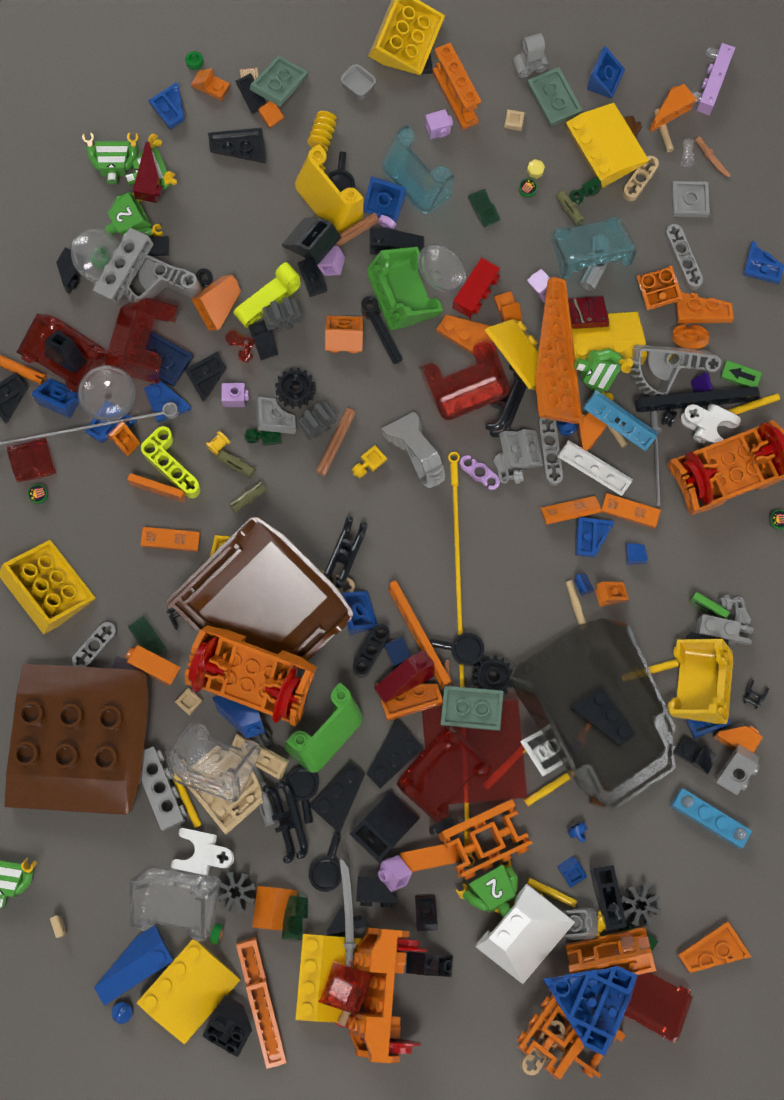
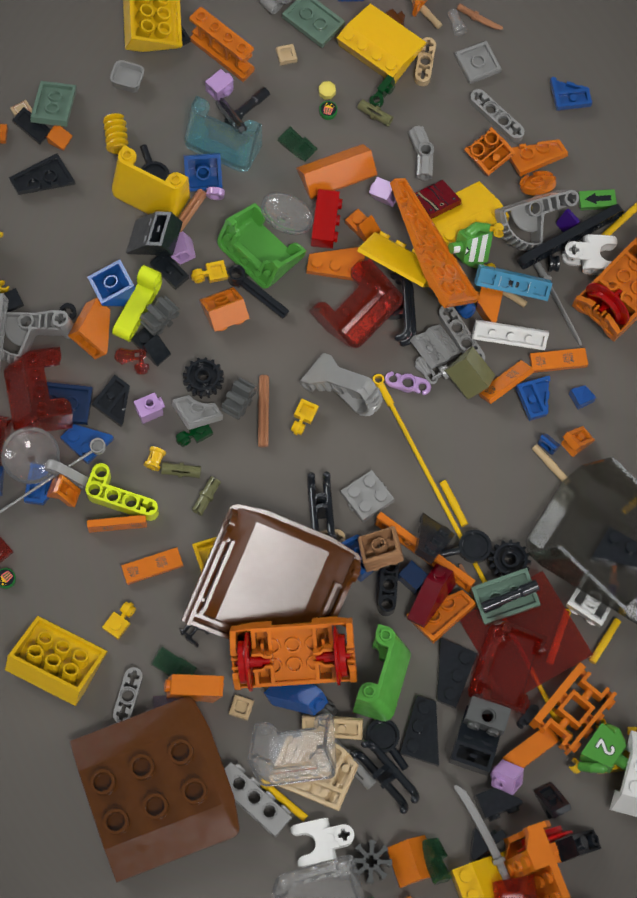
camera: 25 degrees left, 5 degrees down
(115, 578) = (116, 624): none -> yellow plate
(131, 423) = (56, 468): none -> light grey beam
(251, 269) = (112, 285): none -> blue slope
(325, 871) = (443, 806): black piece -> none
(352, 295) = (214, 271): none -> yellow plate
(377, 614) = (380, 549): none -> medium nougat brick
(392, 560) = (367, 496): none -> light grey plate
(393, 239) = (224, 207): black slope -> none
(398, 798) = (498, 714): none -> dark grey brick
(430, 626) = (431, 539): none -> black wing
(431, 156) = (230, 114): none -> black axle
(461, 710) = (498, 601): none -> black piece
(465, 151) = (255, 100): none -> black piece
(468, 600) = (453, 503): none -> yellow piece
(510, 248) = (338, 170): none -> orange slope
(541, 488) = (470, 373): none -> olive slope
(592, 246) = (412, 138): clear light blue windscreen -> none

